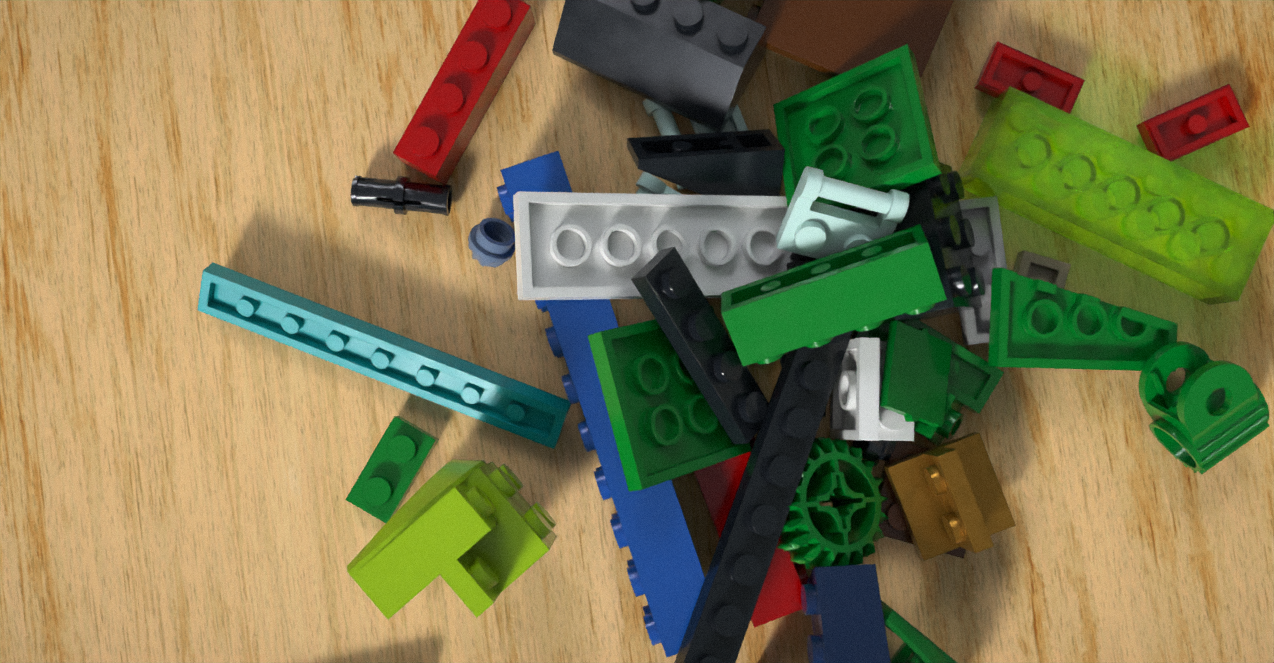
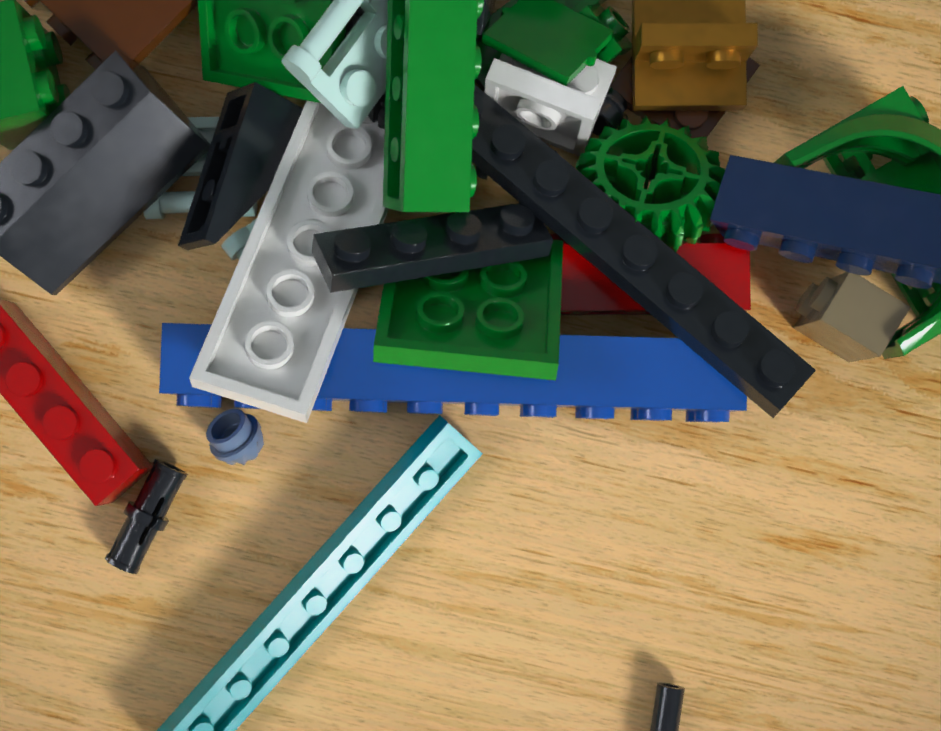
camera: 70 degrees left, 0 degrees up
(392, 469) = (439, 637): green plate -> none
(458, 526) = (524, 574): lime piece -> none

